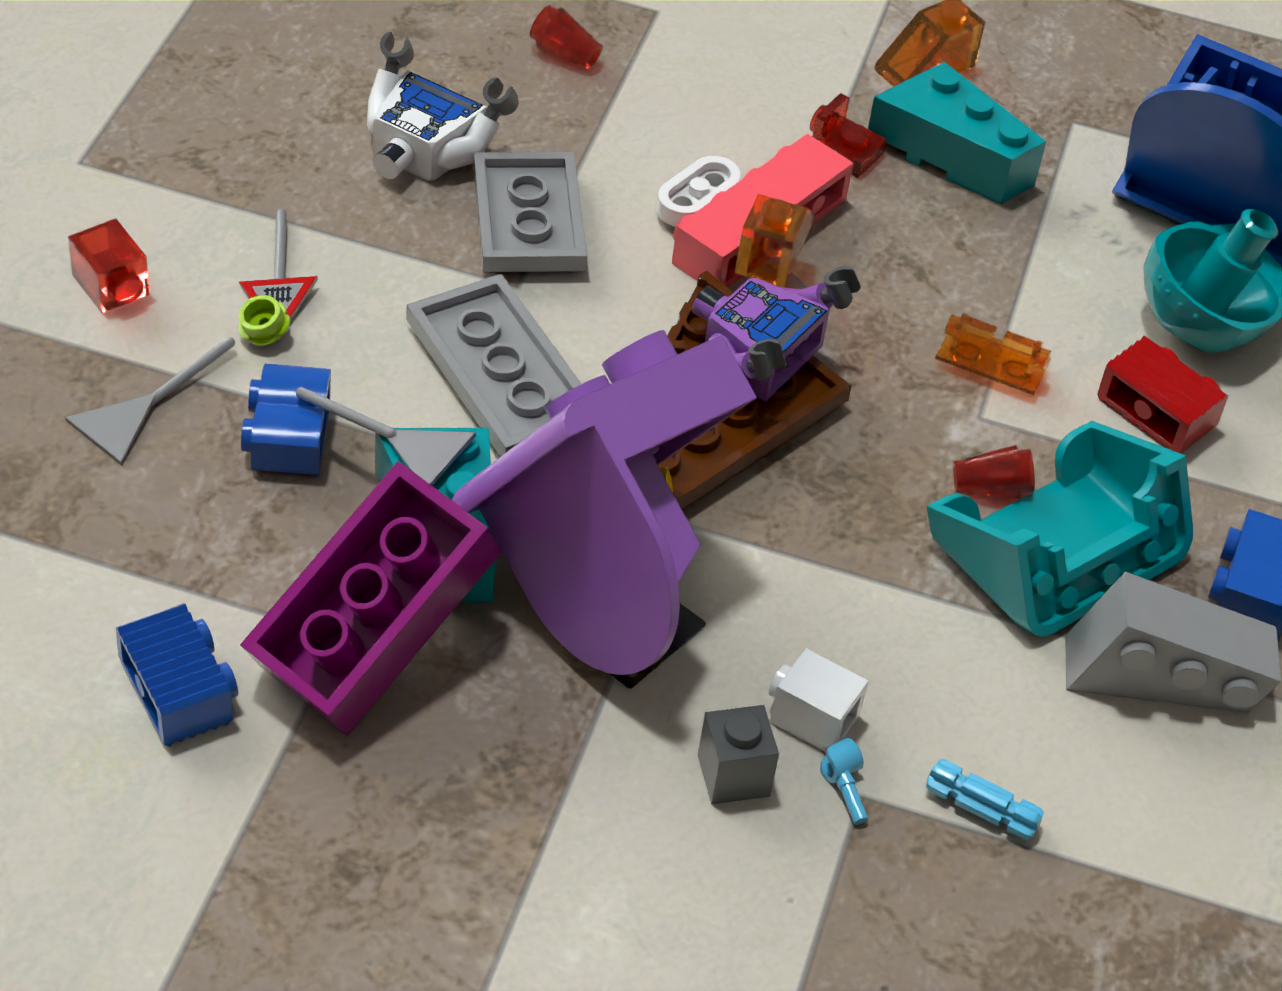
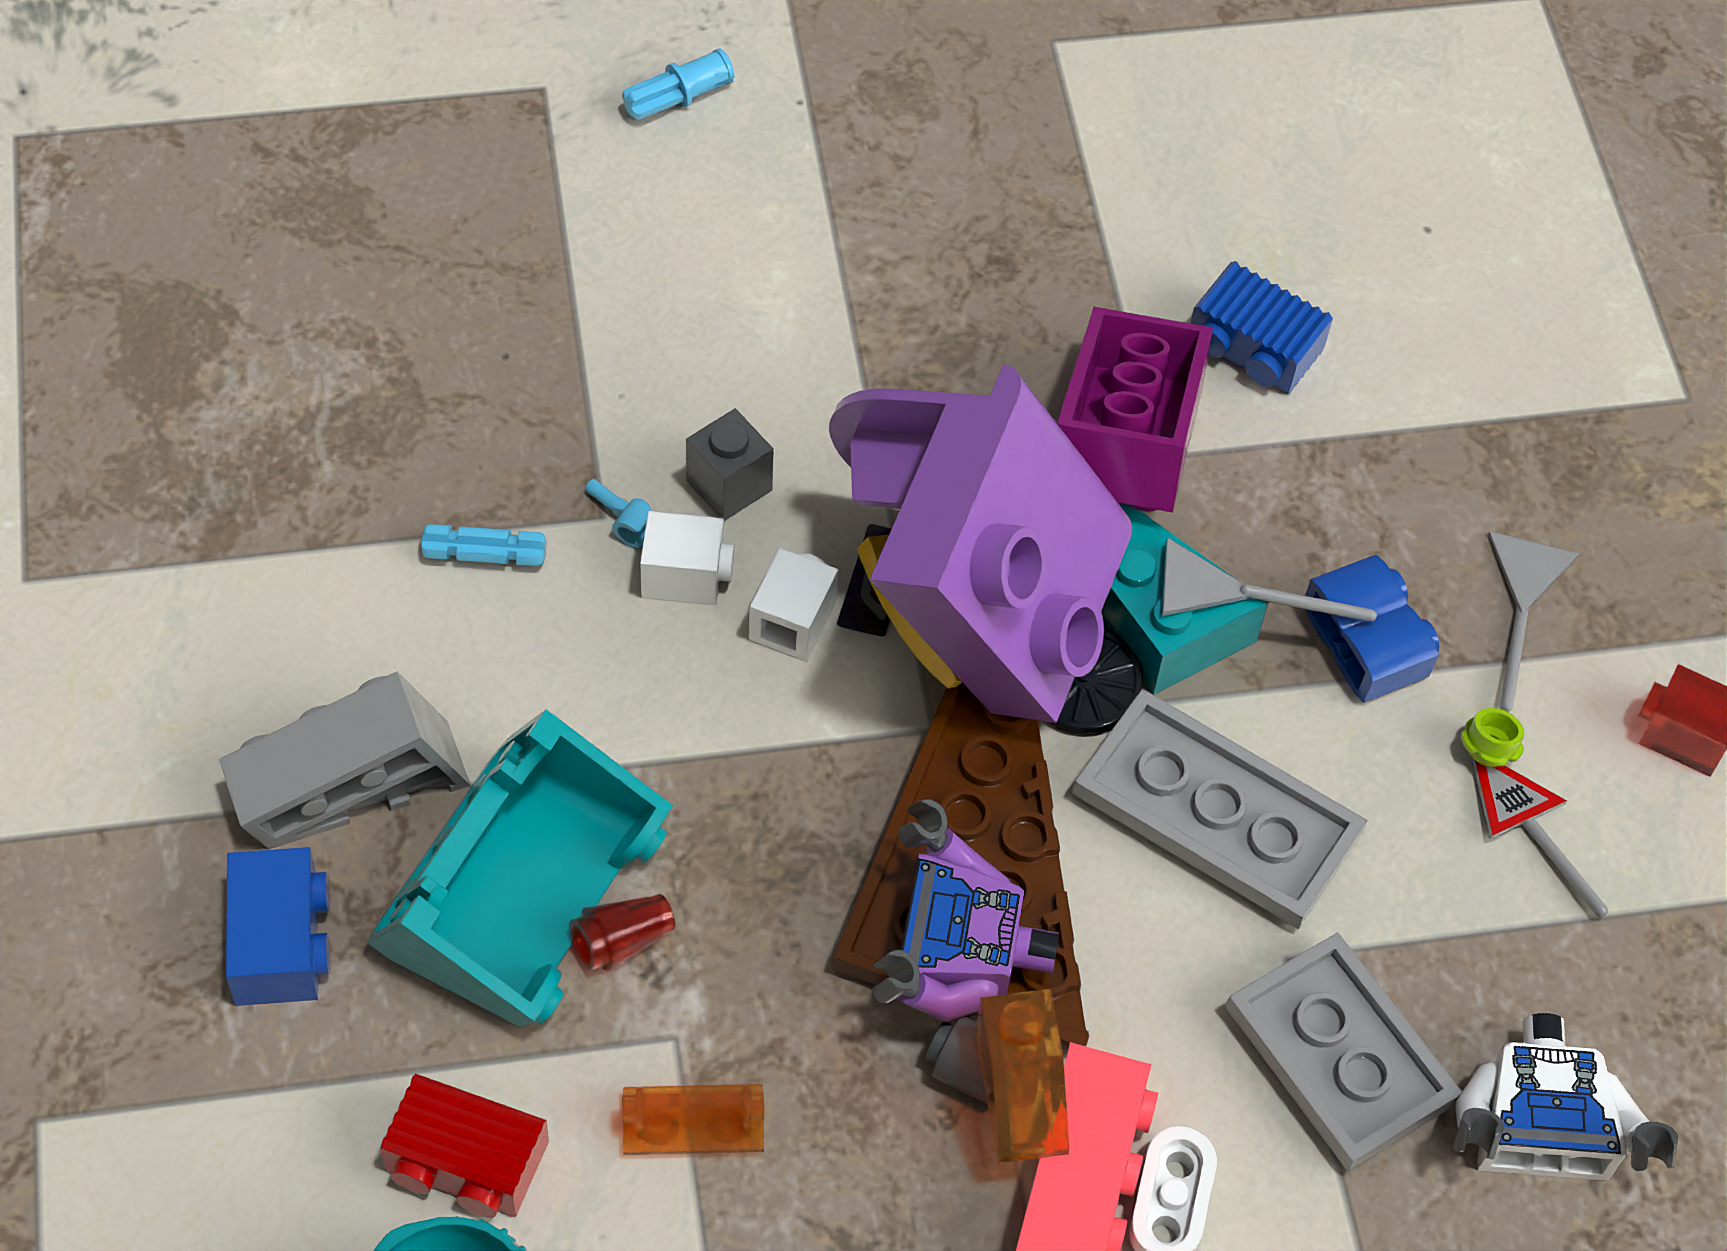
camera: 155 degrees right, 10 degrees up
(743, 626) = (793, 603): none -> white brick

